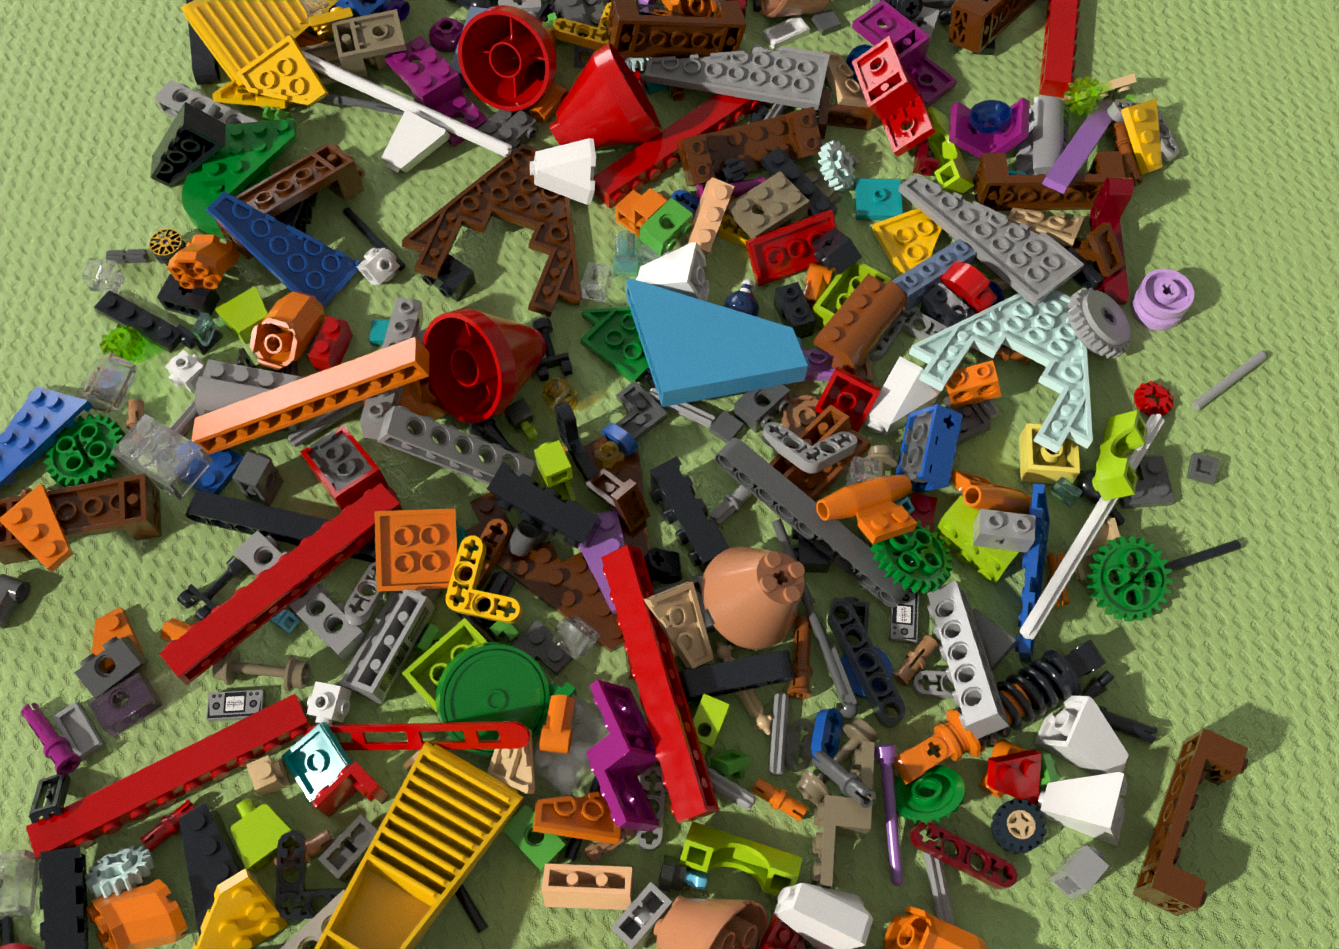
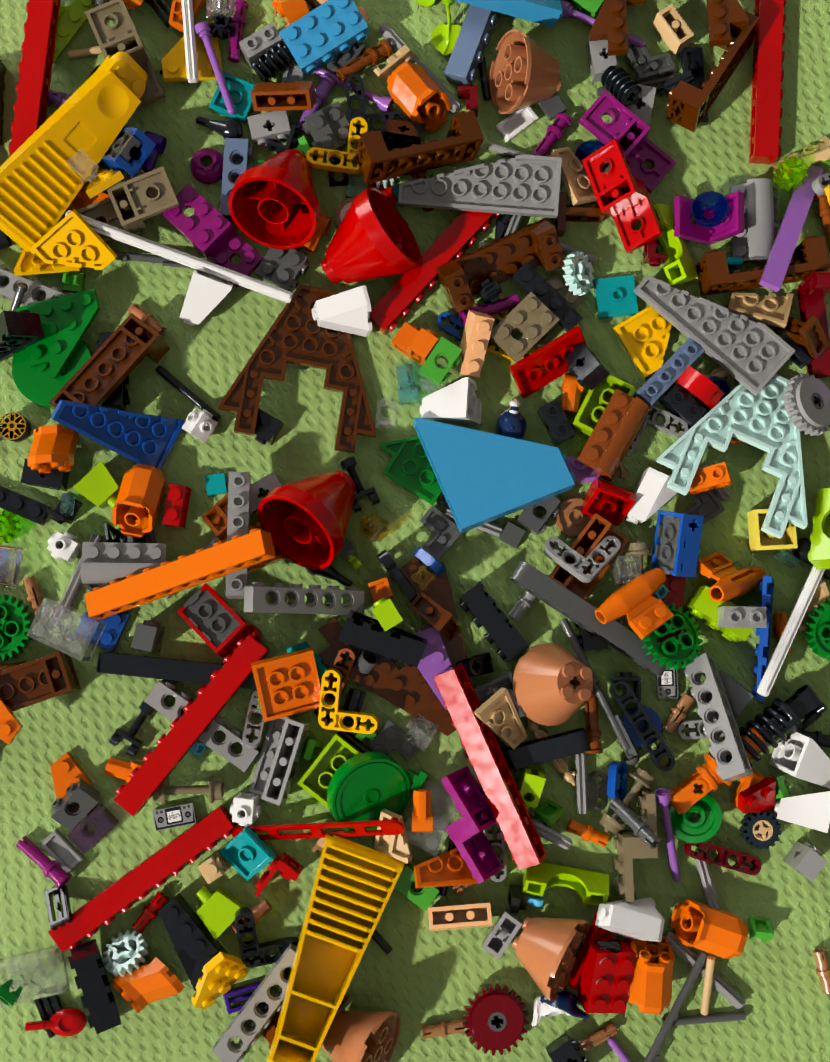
camera: 10 degrees left, 20 degrees up
(349, 849) = (287, 913): dark grey brick -> none
(826, 40) = (553, 134): none -> magenta pin

